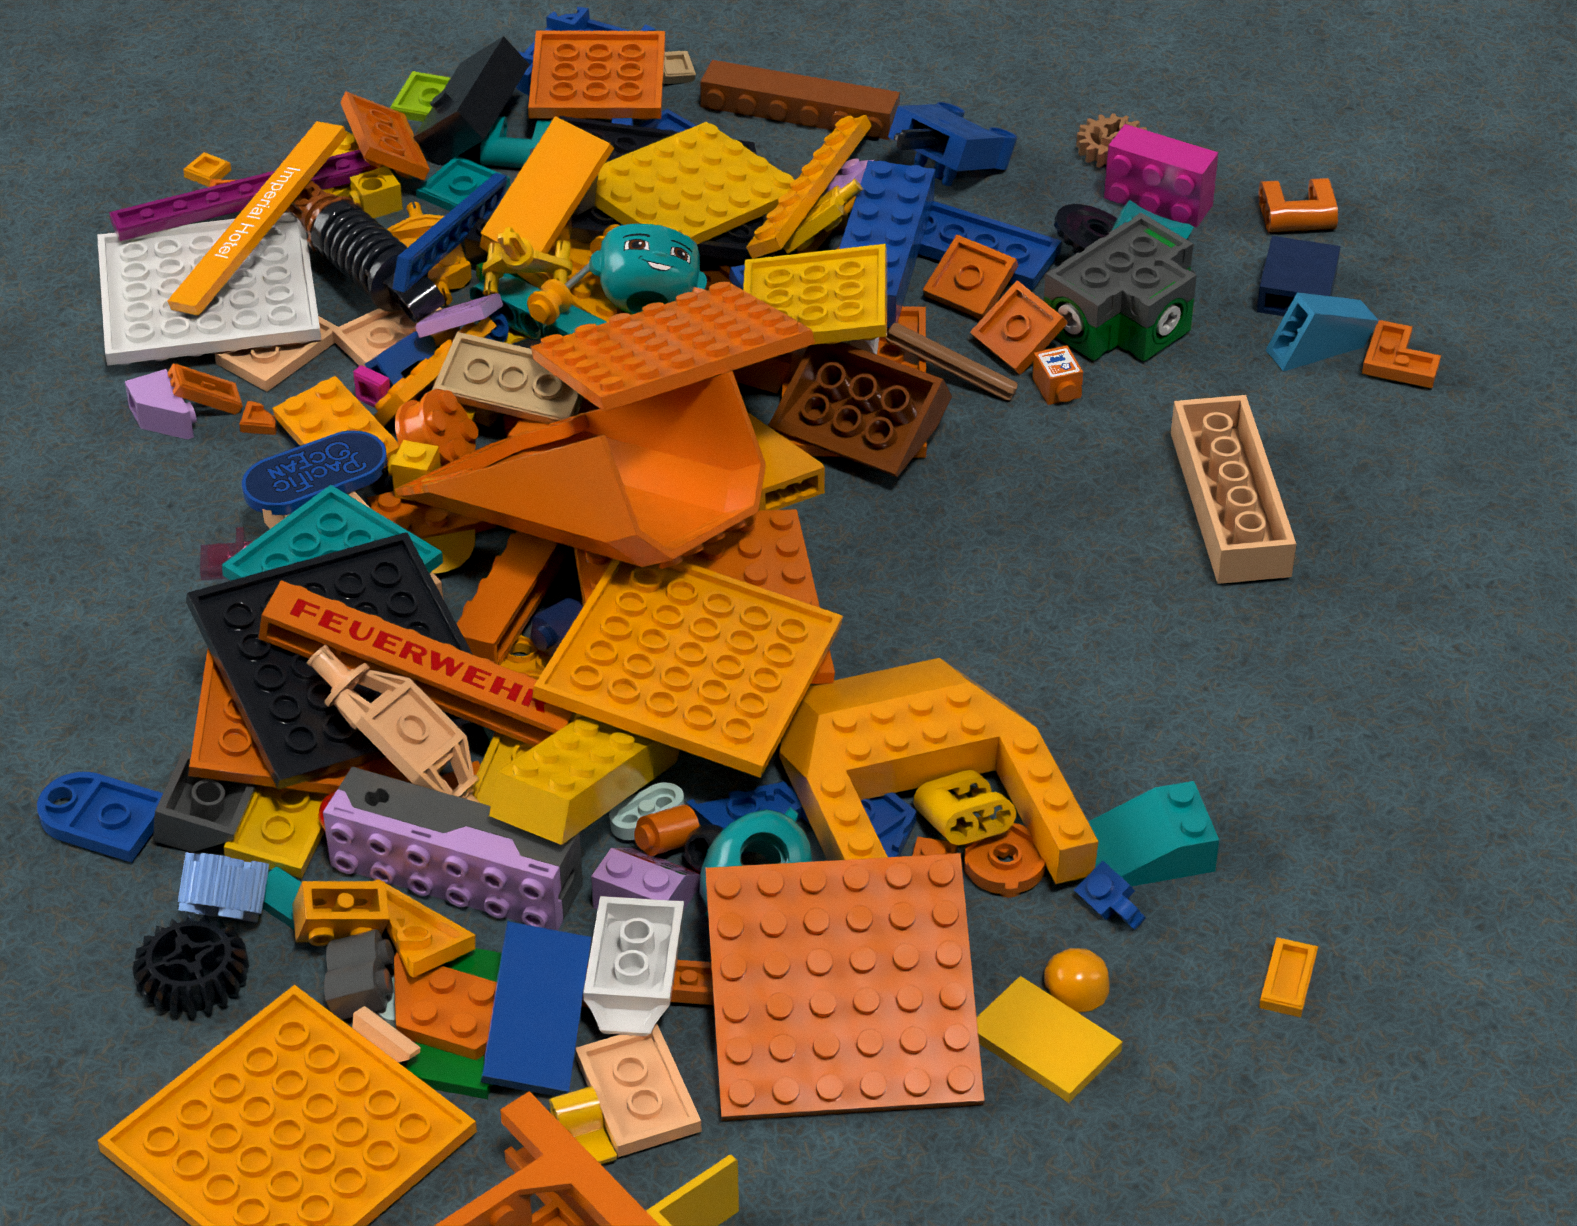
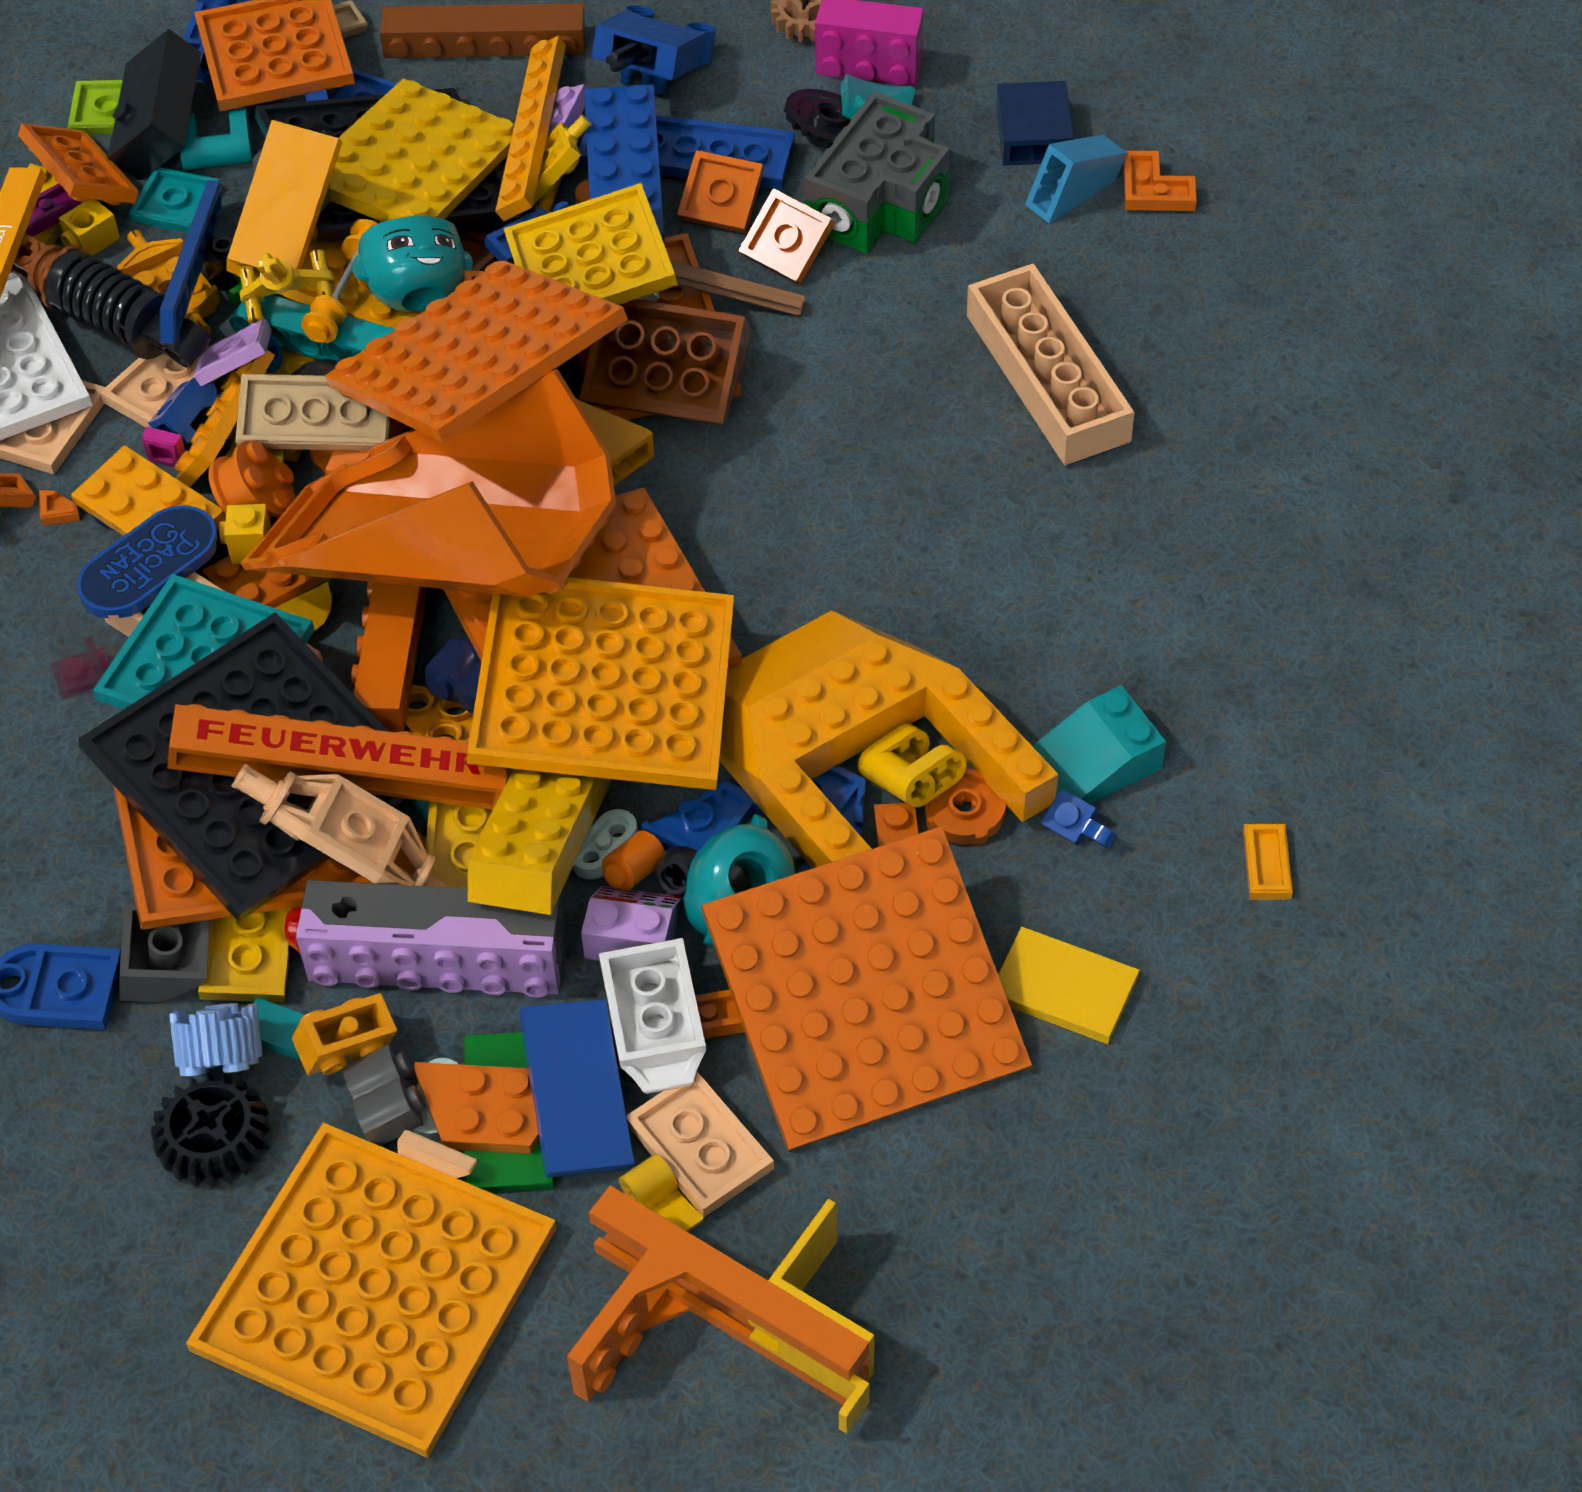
camera: 15 degrees left, 10 degrees up
(422, 935) = (432, 1036): light orange wing -> none
(1057, 375) = (840, 278): orange brick -> none
(1077, 979) = (1075, 915): light orange hair -> none
(1303, 215) = (1026, 48): orange connector -> none

